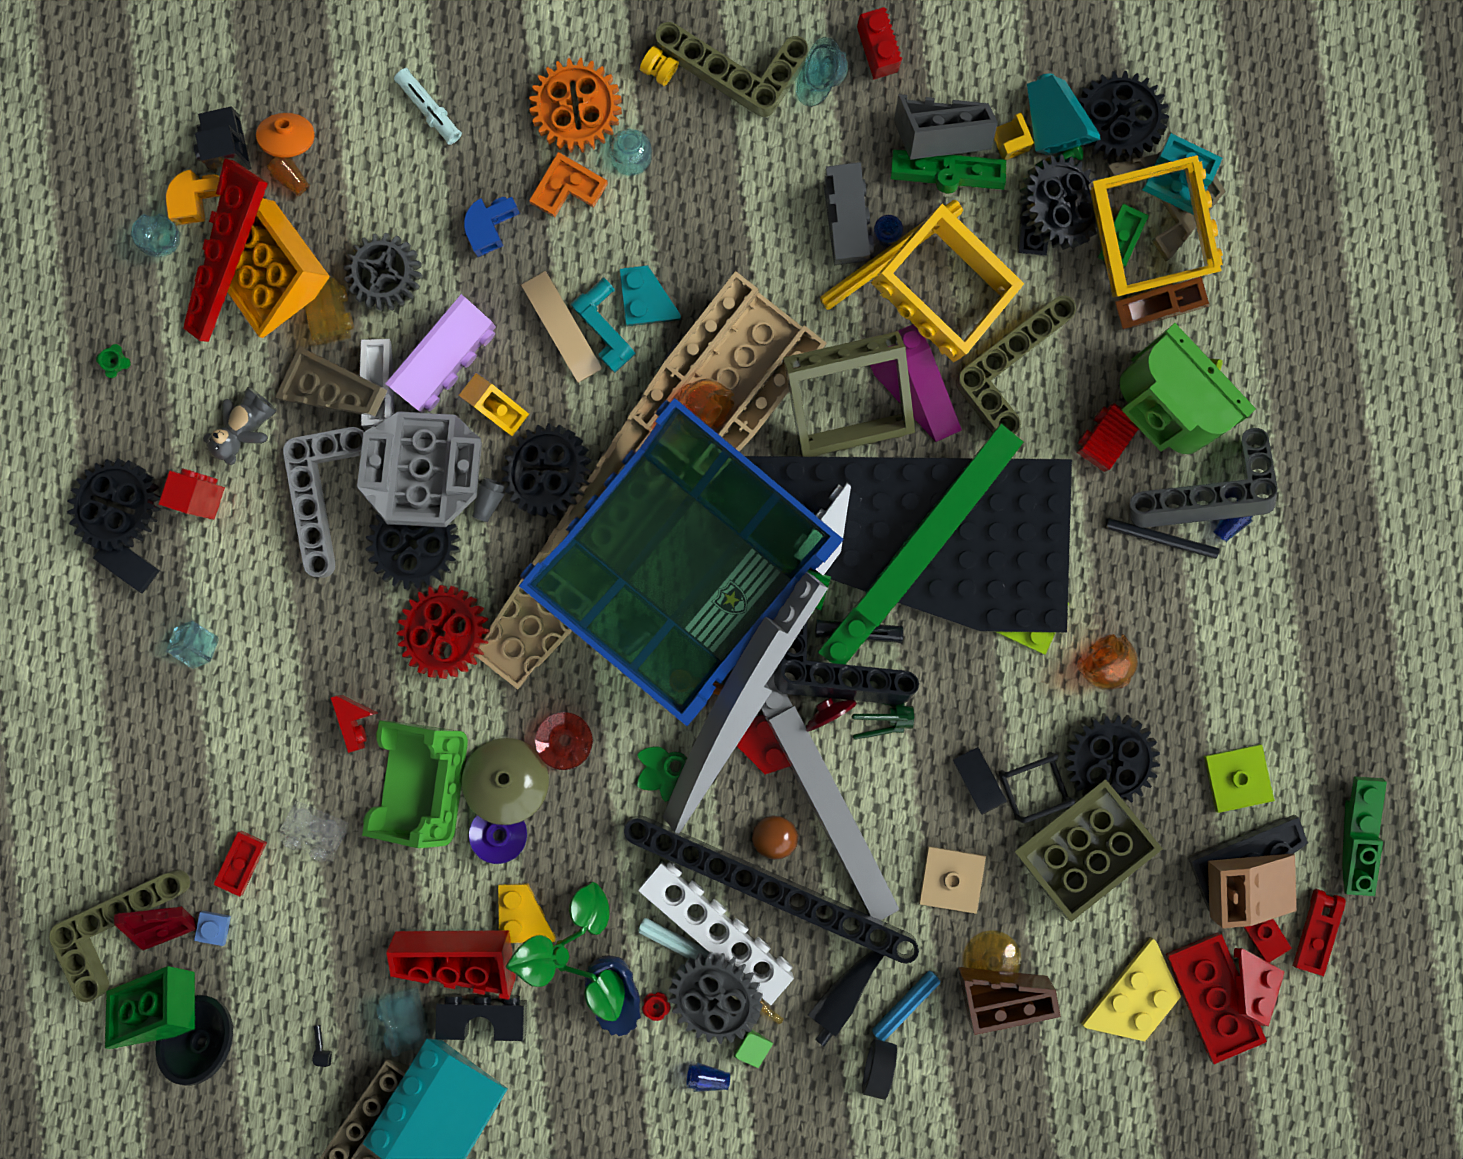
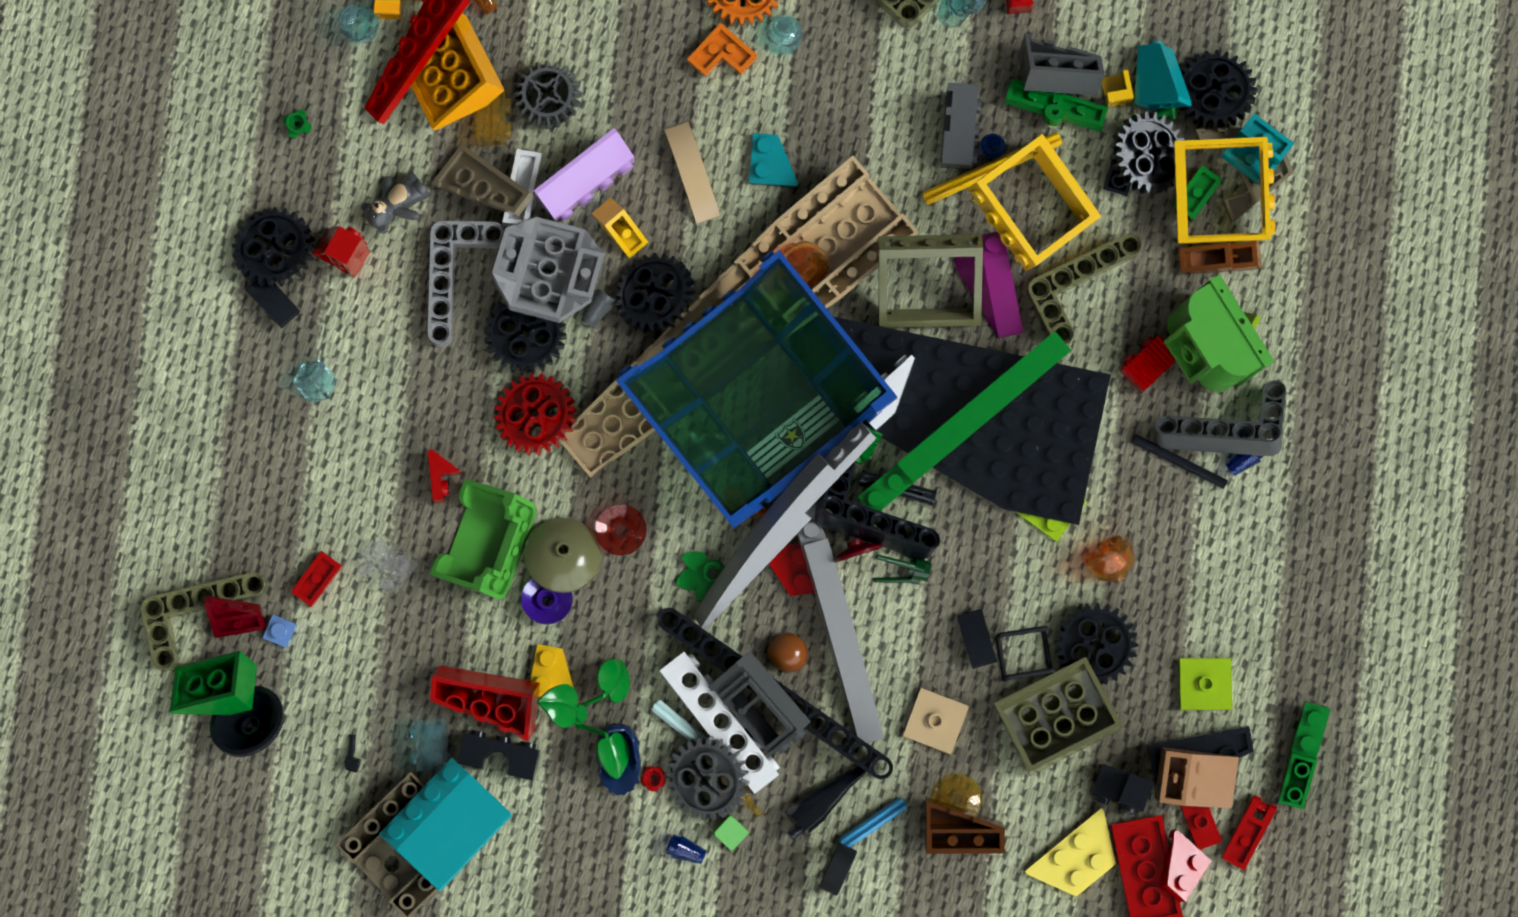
camera: 10 degrees right, 5 degrees down
(481, 223) = (641, 70): blue brick -> none
(617, 349) = (737, 202): teal beam -> none
(741, 878) = (752, 673): none -> dark grey door
(1181, 916) = (1121, 788): none -> black brick

